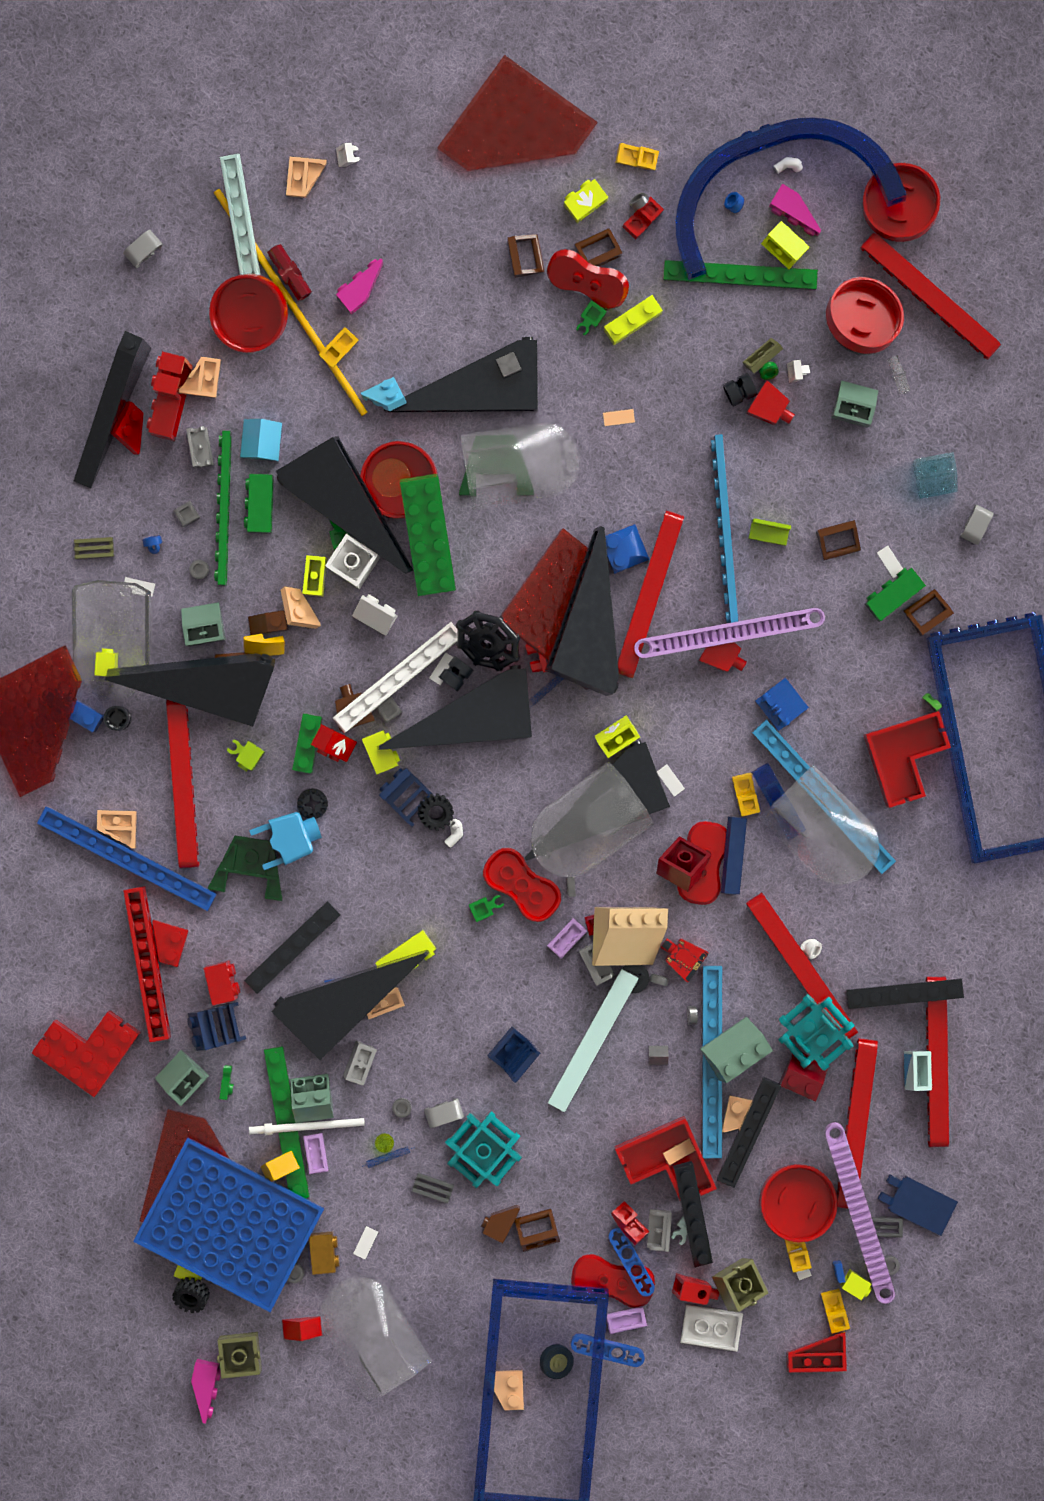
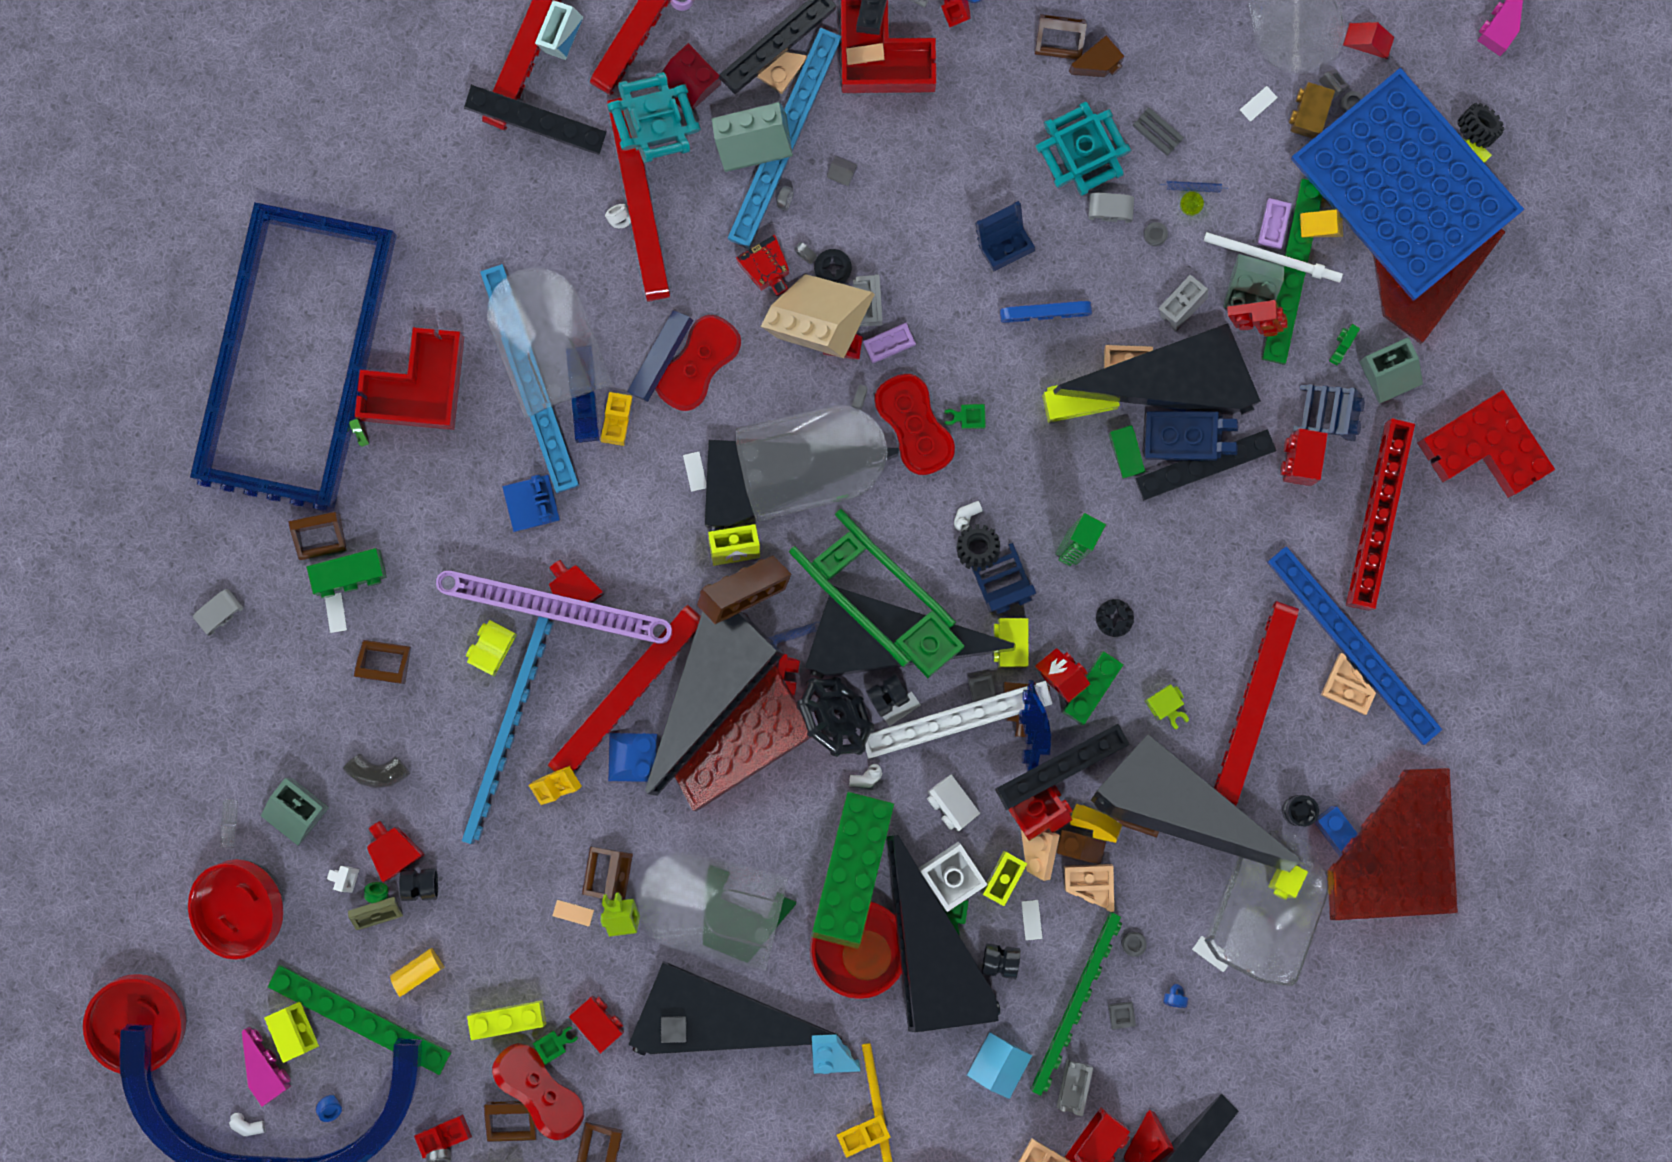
camera: 160 degrees left, 5 degrees down
(94, 540) = (1266, 1028): olive tile -> none
(169, 942) = (1343, 530): red wing -> none
(202, 624) = (1157, 877): sand green slope -> none
(239, 1355) = (1453, 37): olive brick -> none
(246, 857) = (1210, 584): dark green wing -> none
(248, 600) = (1092, 883): none -> light nougat wing
(259, 503) = (1032, 991): green brick -> none
(281, 555) = (1031, 920): none -> white window
(290, 837) = (1158, 588): dark azure piece -> none
(291, 515) = (1001, 961): none -> black wheel
(294, 1075) = (1265, 316): none -> red plate
(306, 675) = (1062, 766): none -> black plate
(309, 637) = (1042, 813): none -> red plate
(314, 962) = (1188, 436): none -> dark blue tile
(314, 1283) = (1334, 81): none -> flat silver slope
(337, 695) = (1035, 726): none -> clear blue slope
(354, 932) = (1127, 451): none -> green slope
(363, 843) = (1080, 540): none -> green brick
(443, 720) = (927, 643): none -> green plate
(444, 607) = (868, 779): none -> white arm
(459, 1012) = (1046, 311): none -> blue beam
(566, 345) = (597, 1023): none -> red brick
(583, 429) = (619, 916): none -> lime brick
(593, 1040) = (908, 217): light aqua tile -> none
(595, 705) = (743, 589): none -> reddish brown brick
(598, 458) = (617, 873): none -> reddish brown tile
(672, 504) = (555, 785): none -> yellow slope
(683, 863) = (721, 369): dark red slope -> none
(714, 326) = (416, 972): none -> yellow brick
(763, 584) = (491, 647): none -> neon yellow brick
(769, 532) = (458, 705): lime panel -> none
(807, 455) = (376, 775): none -> clear smoke cylinder
(931, 295) = (150, 901): red beam -> none
(936, 475) = (238, 688): clear light blue slope -> none

